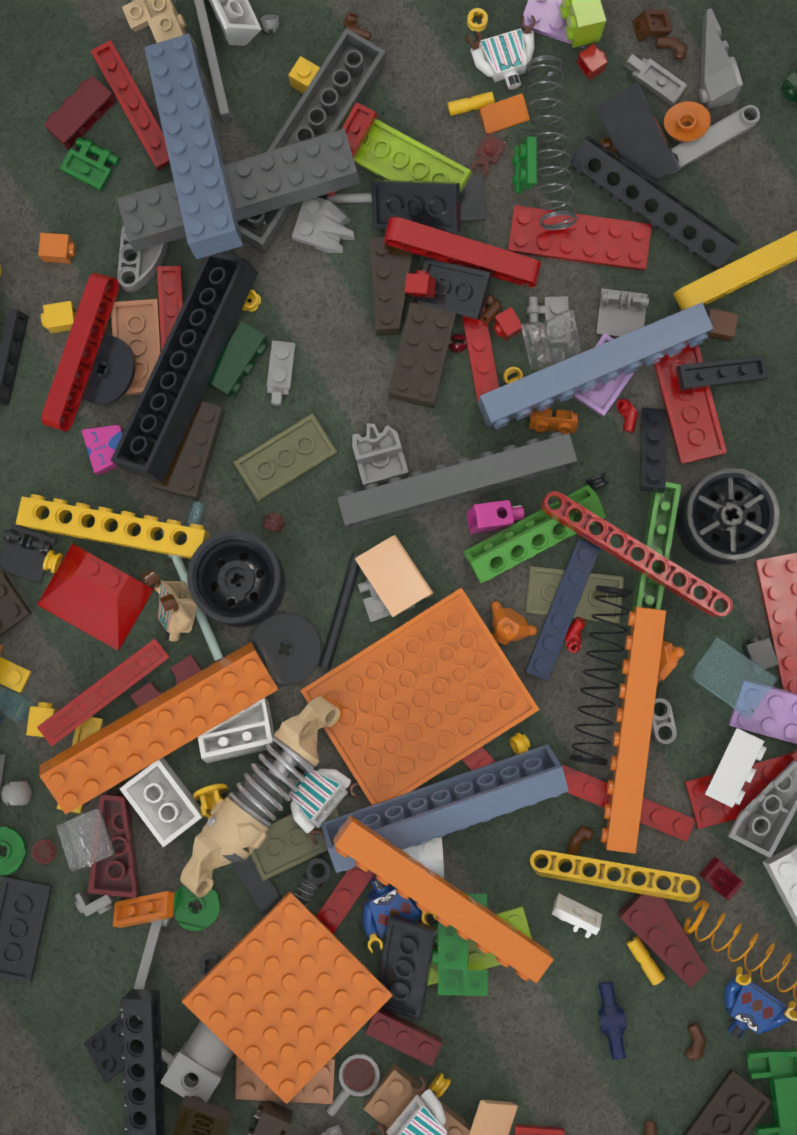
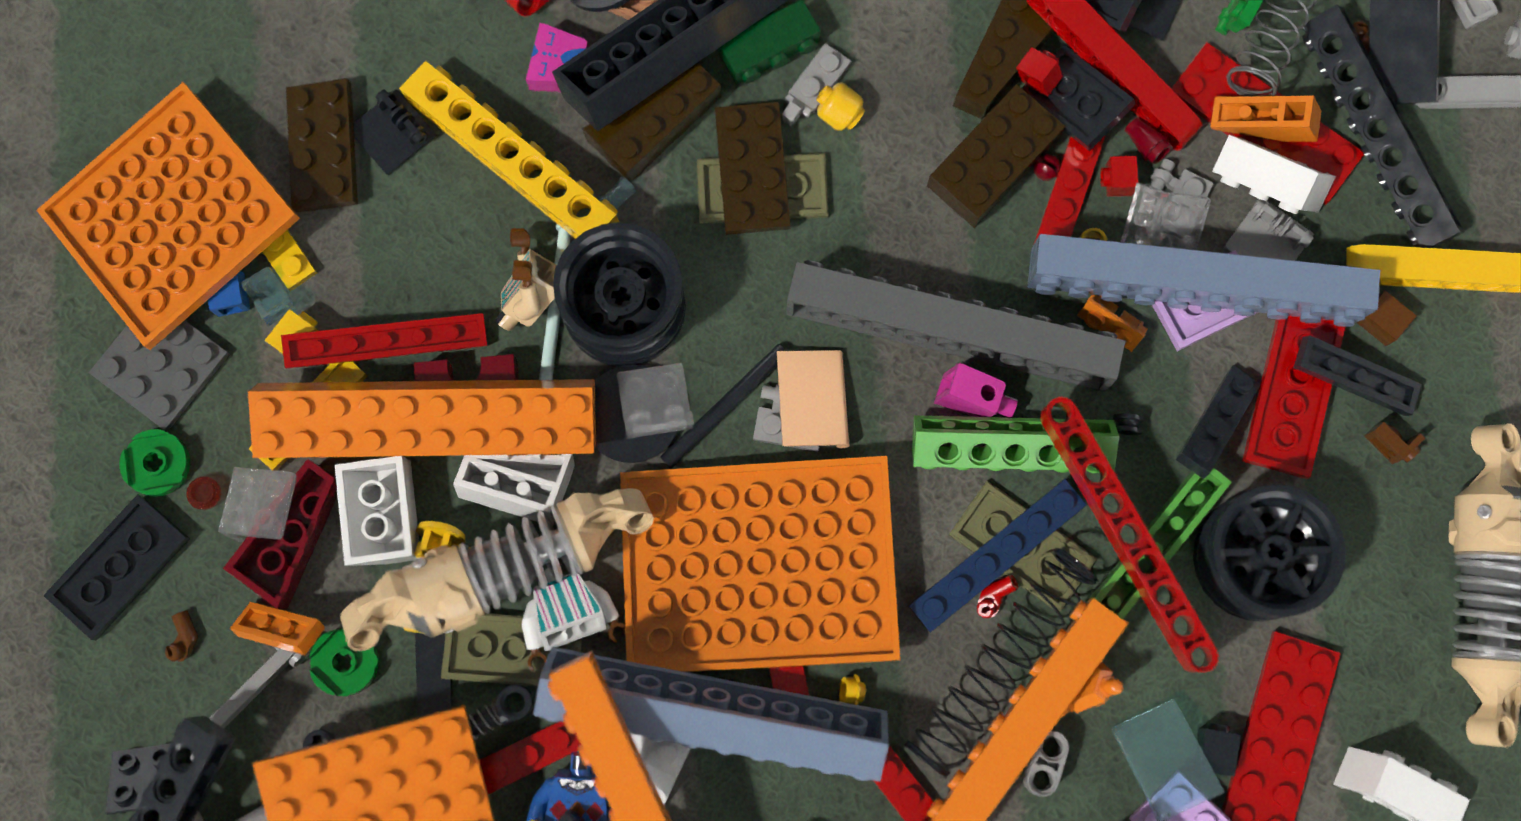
camera: 30 degrees right, 5 degrees down
(16, 793) = (212, 404): light grey piece -> none
(52, 561) = (416, 157): yellow bush -> none
(88, 948) = (185, 640): none -> reddish brown arm
(95, 597) = (443, 227): red slope -> none
(101, 904) = (230, 593): light grey bracket -> none
(272, 448) = (752, 168): none -> dark brown plate
(273, 522) = (704, 255): clear red plate -> none
(296, 633) = (654, 400): none -> clear bracket
(305, 377) = (840, 106): none -> yellow head
(379, 455) = (877, 244): light grey plate -> none
(493, 308) = (1114, 147): reddish brown arm -> none
(509, 625) = (921, 537): orange rock -> none
(513, 291) = (1149, 141): none -> dark red cone
(579, 236) = (1268, 117): none -> orange slope
(602, 273) = (1272, 176): none -> white wedge
(629, 413) = (1212, 364): red arm -> none
(690, 114) = (1475, 55): orange dish -> none
(763, 402) = (1390, 443): none -> reddish brown bracket

